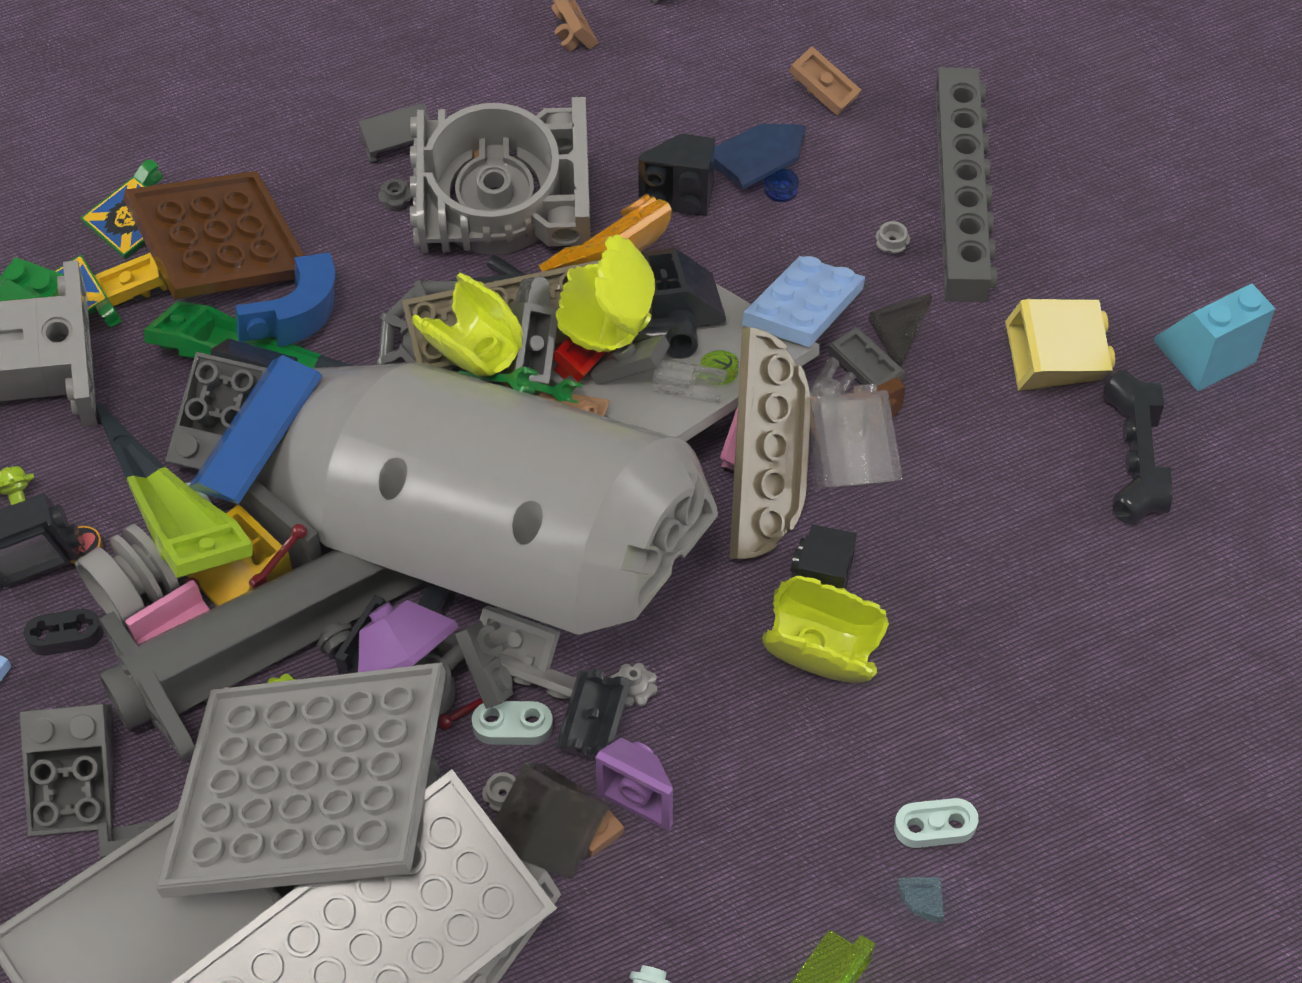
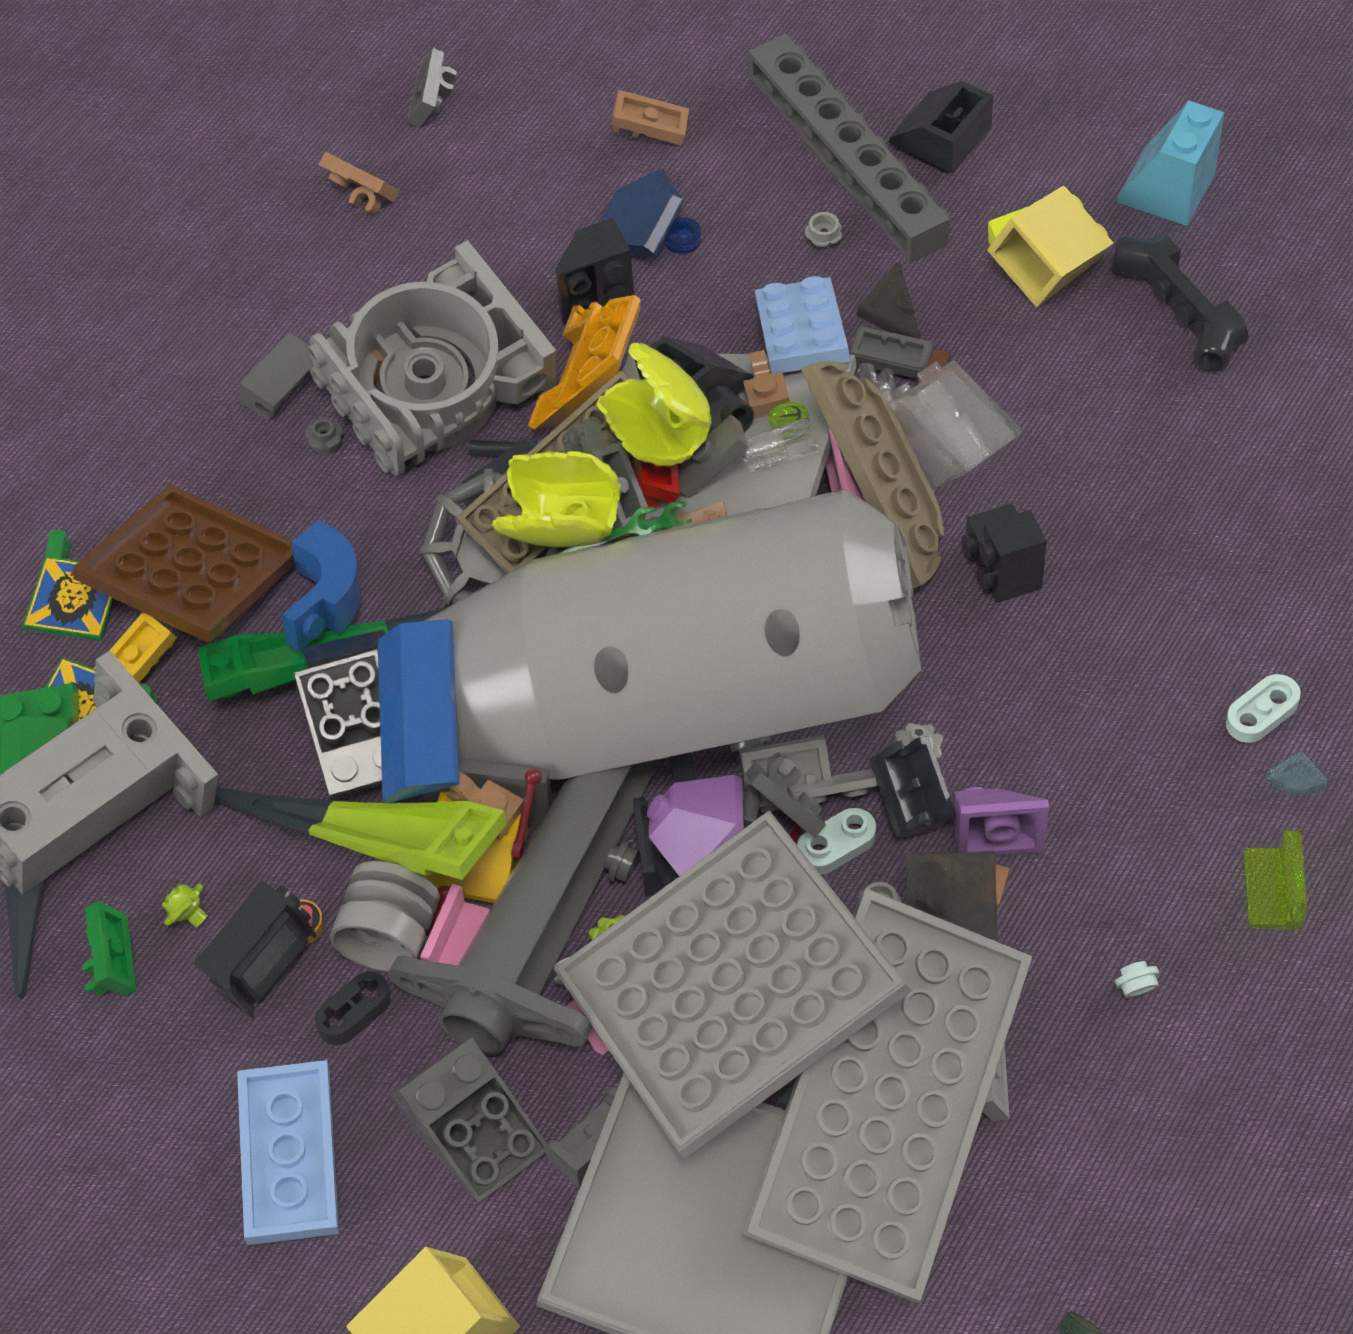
camera: 30 degrees left, 0 degrees up
(260, 531) = (489, 795): none -> medium nougat plate
(725, 333) = (765, 389): none -> medium nougat plate
(825, 630) = (1053, 599): neon yellow animal -> none
(1055, 207) = (946, 125): none -> black slope

